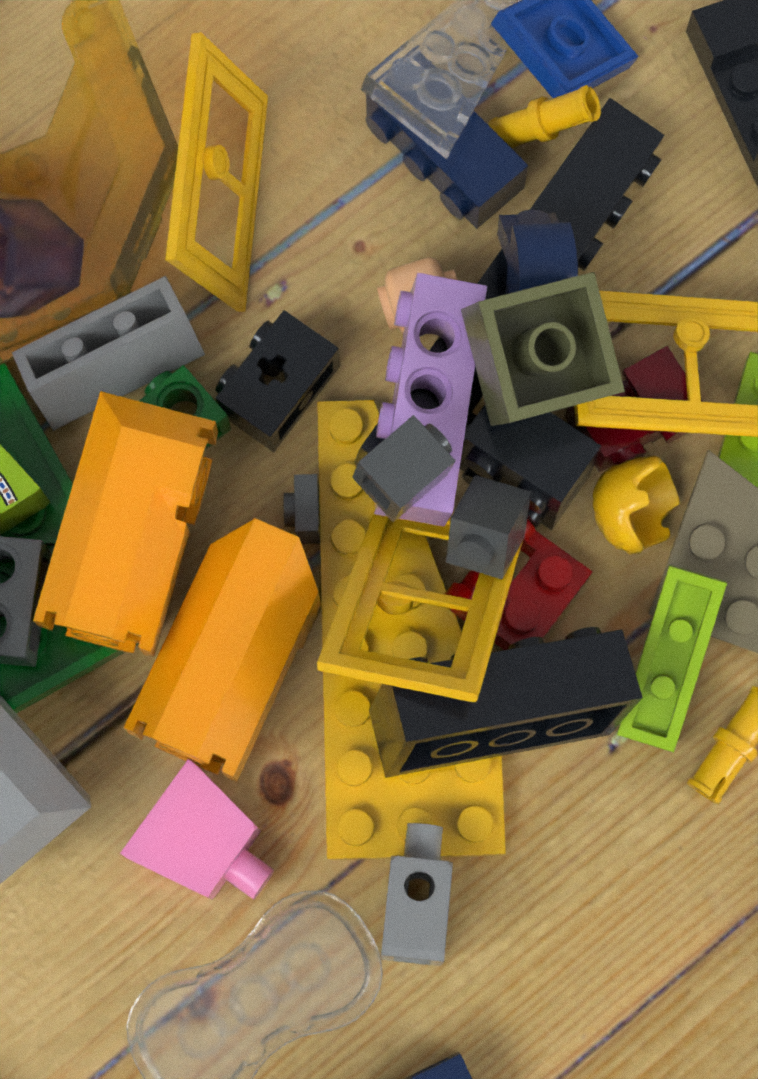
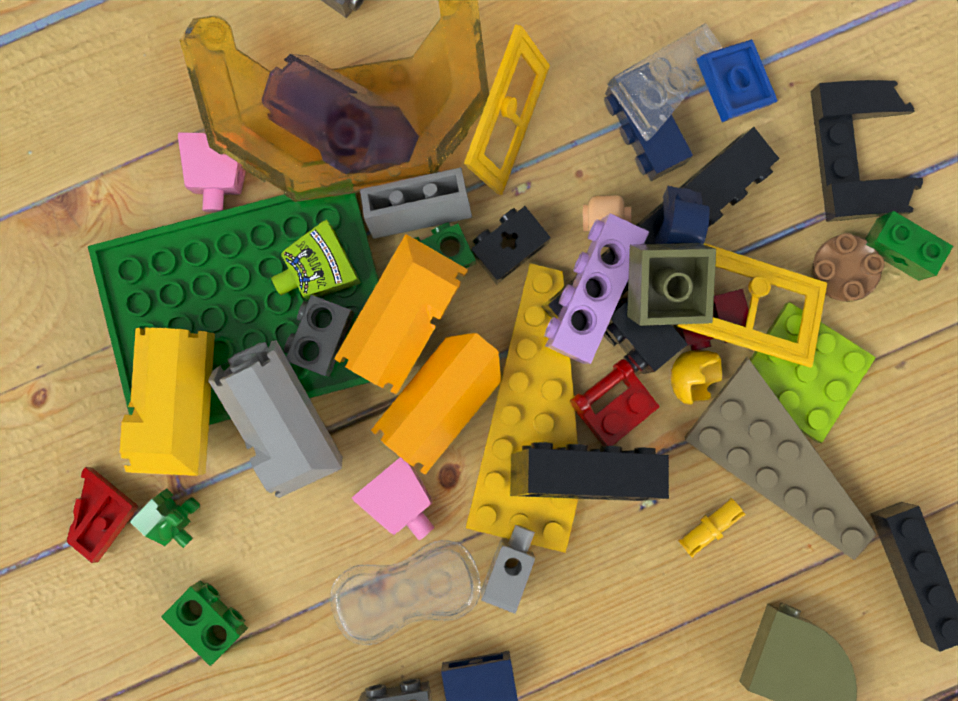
camera: 15 degrees right, 10 degrees up
(302, 508) = (505, 325): dark grey plate -> none
(367, 586) = (529, 390): yellow door -> none
(404, 467) = (571, 333): dark grey brick -> none
(488, 527) = (608, 372): dark grey brick -> none
(548, 117) = (712, 128): yellow pin -> none
(673, 656) = (693, 469): lime plate -> none

